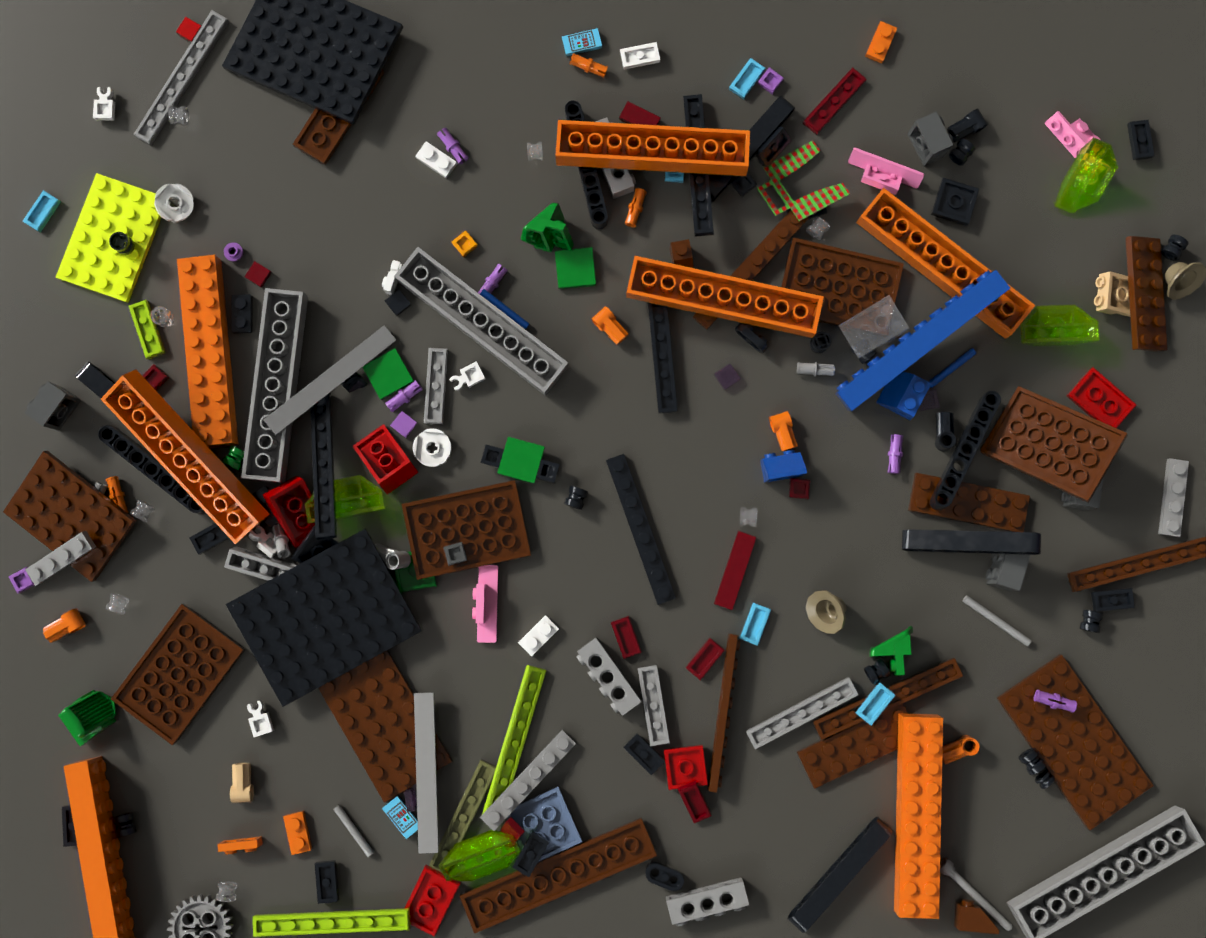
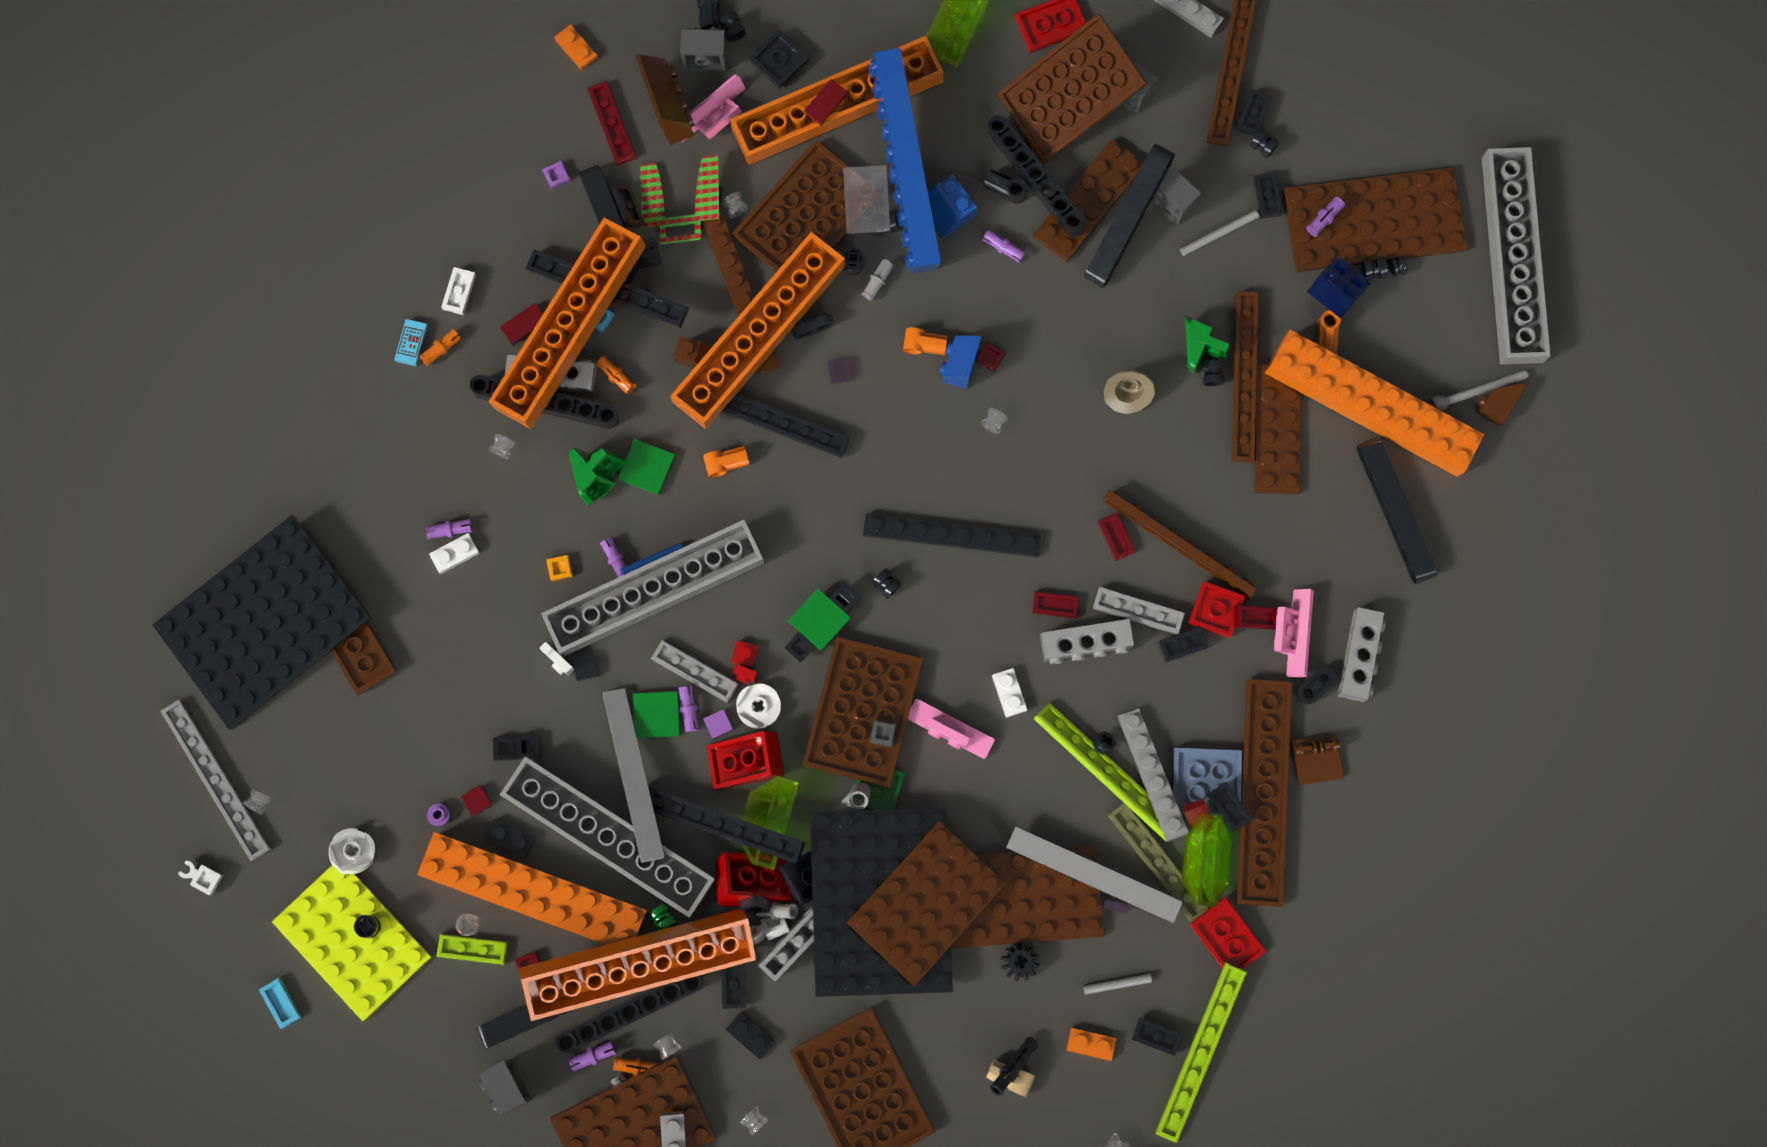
camera: 65 degrees left, 5 degrees down
(109, 458) = (592, 1056): none -> medium lavender pin
(180, 568) = (750, 1035): none -> black plate
(188, 29) = (167, 746): red tile -> none
(226, 779) = (1013, 1066): none -> black pin
(248, 844) = (1078, 1101): orange plate -> none
(260, 722) = (957, 1027): white plate -> none
(276, 522) = (755, 904): none -> black tile
(311, 282) = (516, 748): none -> black slope
(325, 747) = (1013, 957): none -> black gear
(337, 653) = (926, 903): none -> reddish brown plate
(354, 383) = (648, 754): black slope -> none
(403, 820) = (1127, 925): medium azure tile -> none
(451, 425) = (744, 674): none -> red plate
(467, 417) = (744, 654): none -> red plate
(470, 374) = (703, 628): white plate -> none
(540, 729) = (1109, 740): none -> black bush
(606, 905) = (1317, 759): none -> reddish brown hinge
(698, 838) = (1293, 632): none -> bright pink bracket
(735, 570) = (1041, 462): dark red tile -> none
(747, 78) = (541, 197): medium azure tile -> none
(755, 624) = (1106, 469): medium azure tile -> none
(801, 713) = (1218, 467): light grey plate -> none
(874, 129) = (666, 98): none -> reddish brown slope
(875, 703) = (1244, 390): medium azure tile -> none
(937, 254) = (826, 102): none -> dark red tile
(952, 367) = (945, 145): blue bar -> none
(1000, 740) = (1339, 287): none -> clear blue brick
(1048, 645) = (1267, 195): none -> black plate

